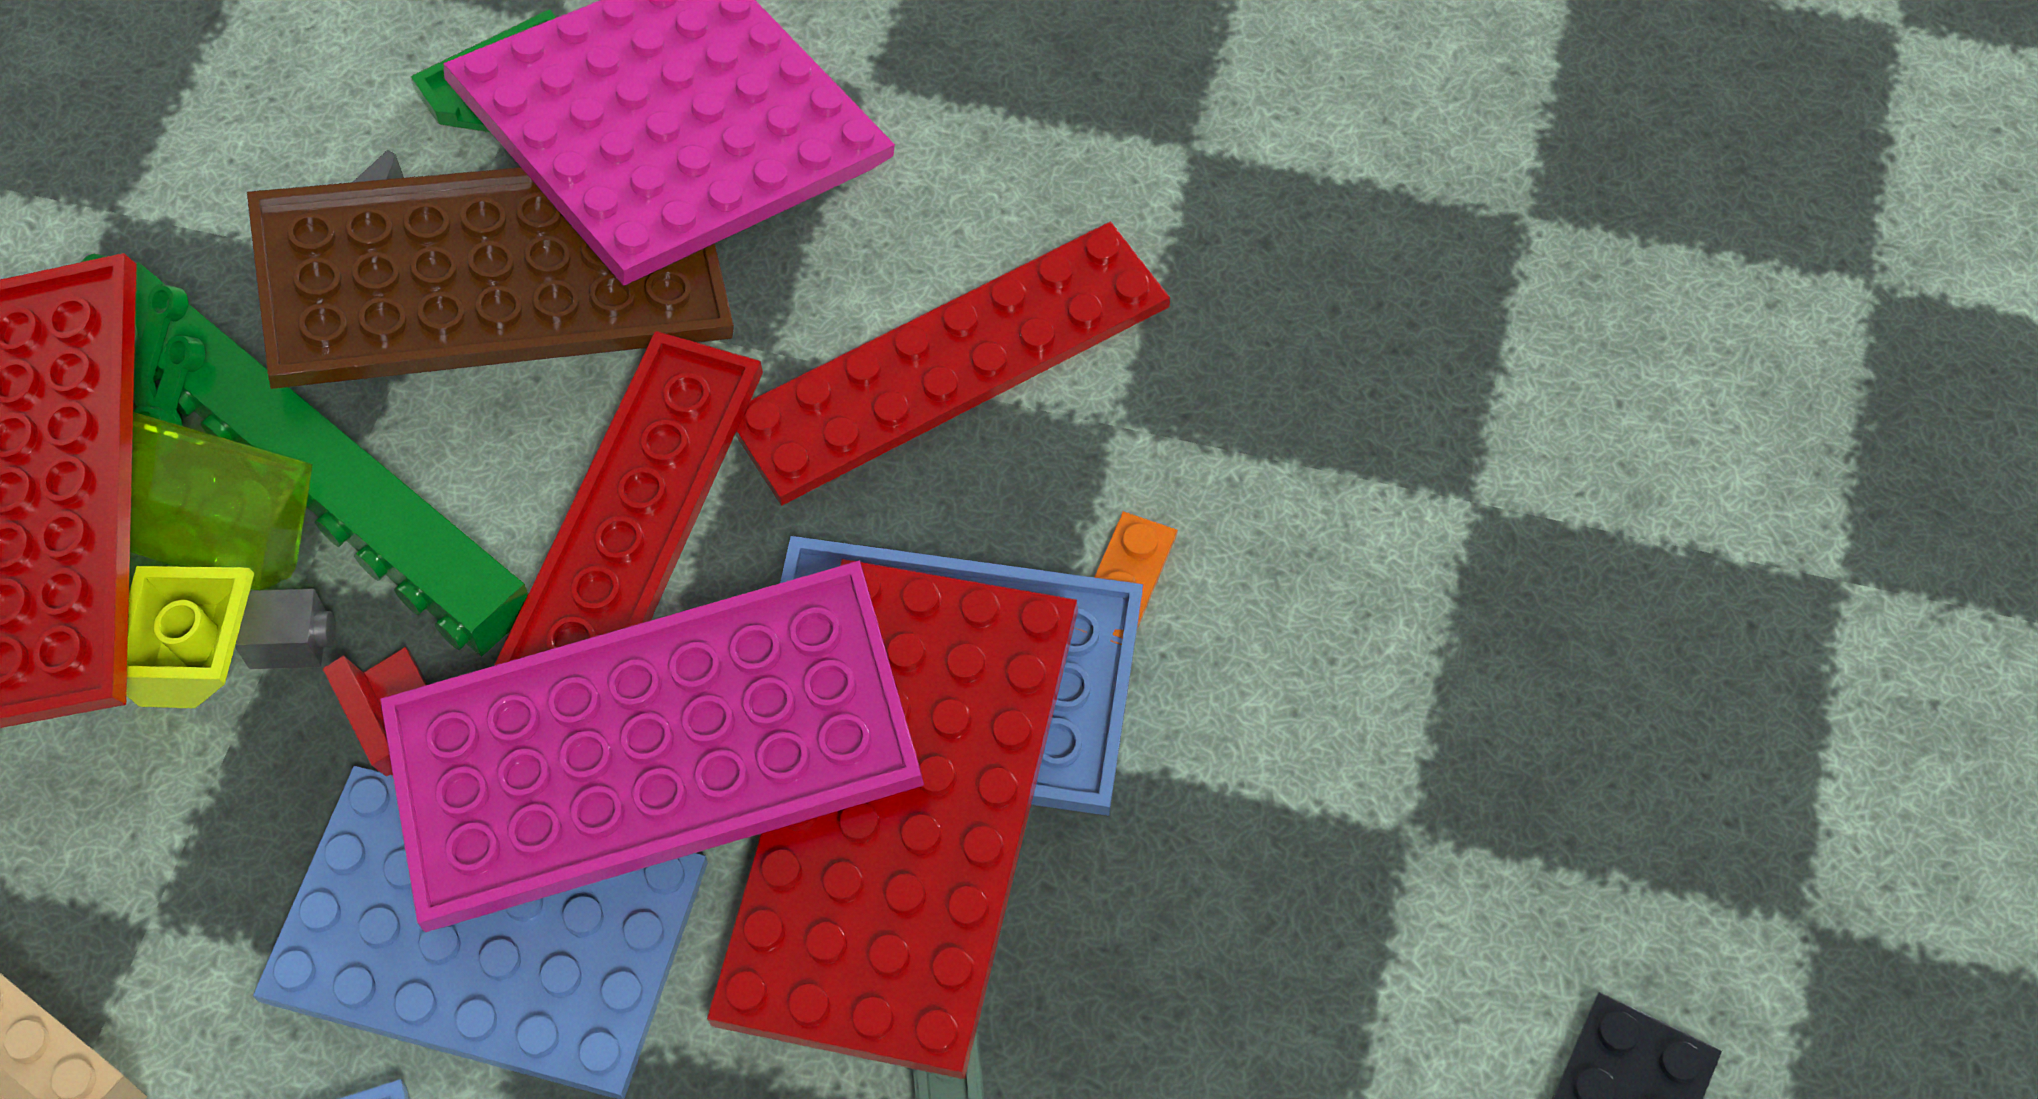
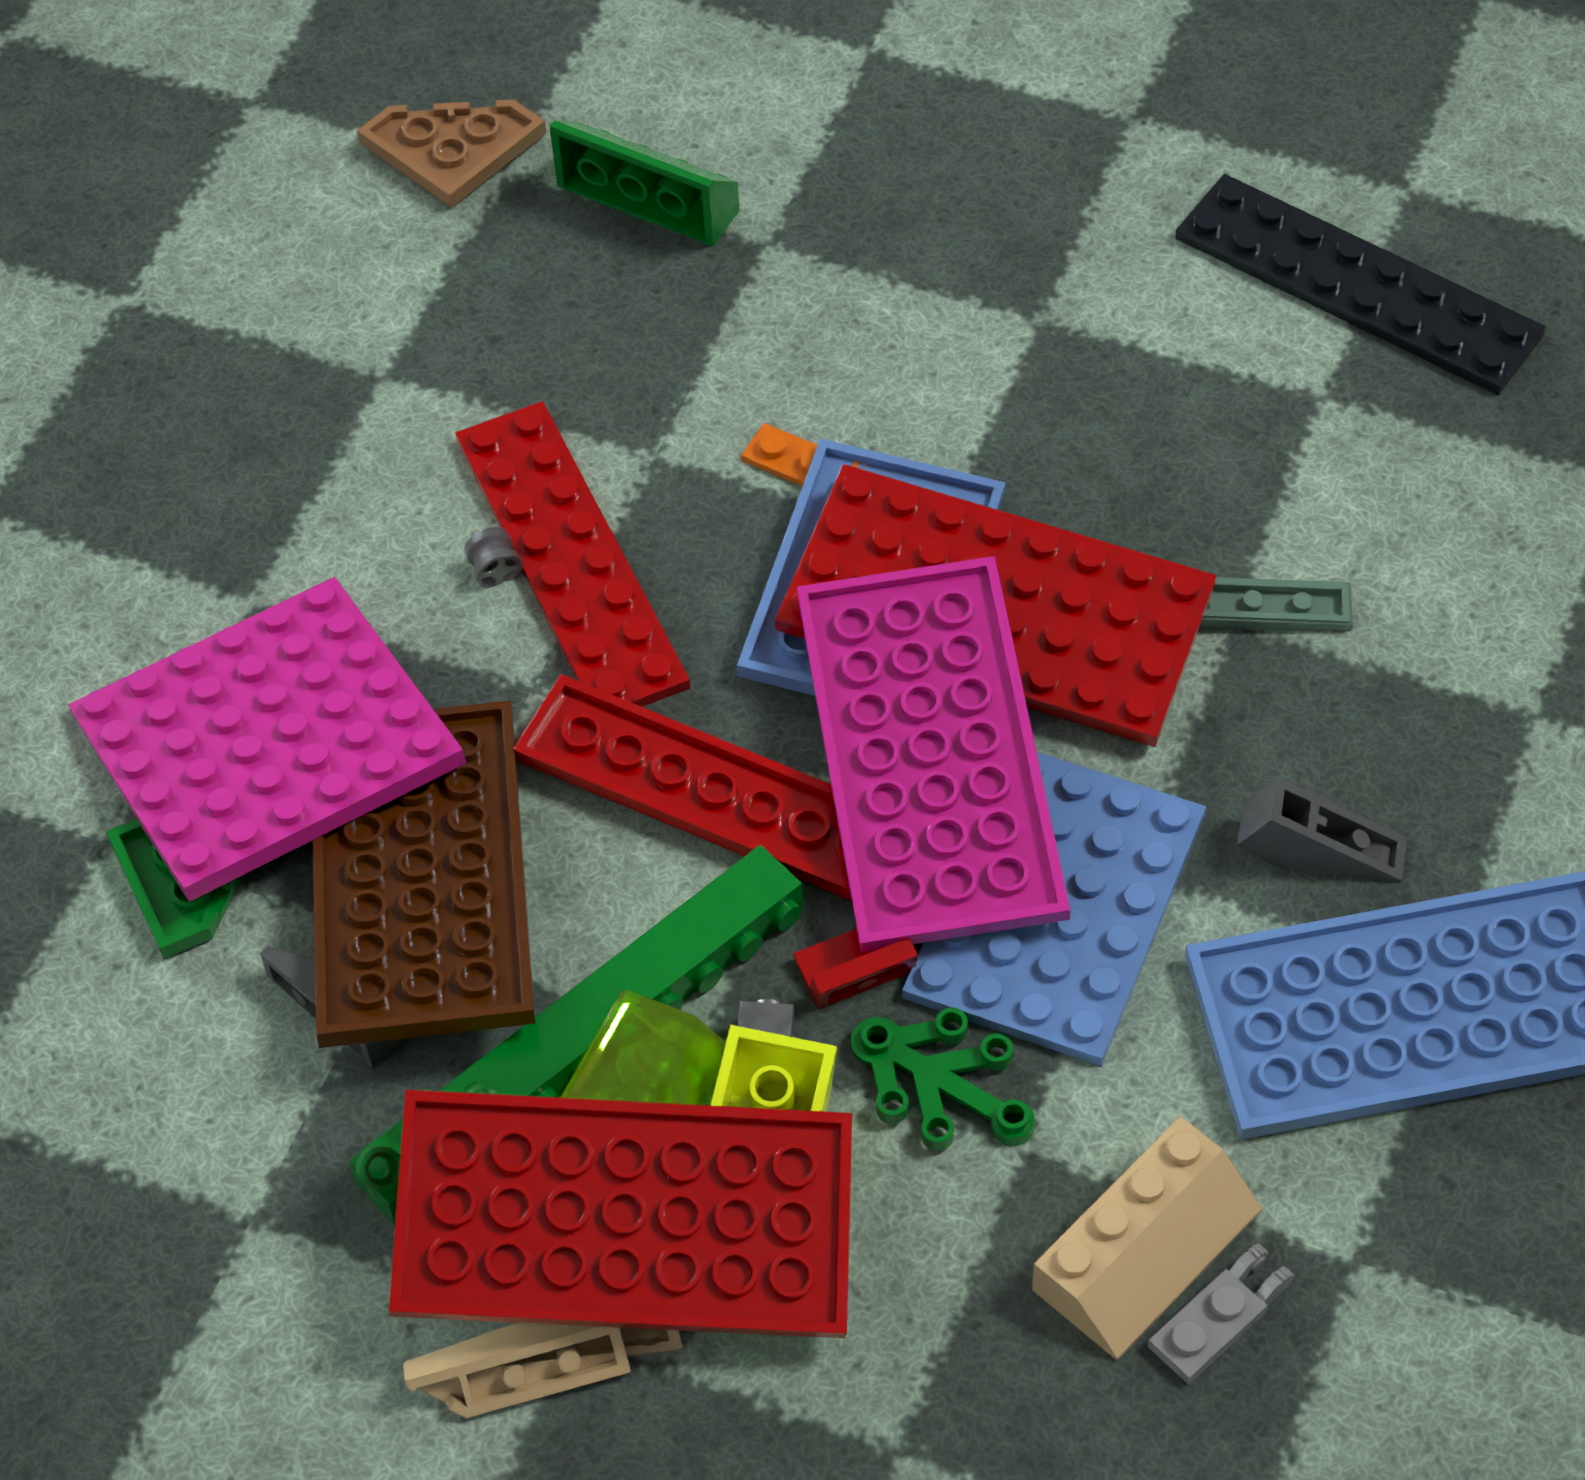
camera: 80 degrees left, 5 degrees down
(239, 814) = (938, 1074): none -> green plant
(932, 280) = (493, 557): none -> flat silver wheel
(1528, 344) = (643, 181): none -> green slope
(1549, 153) = (453, 144): none -> medium nougat plate

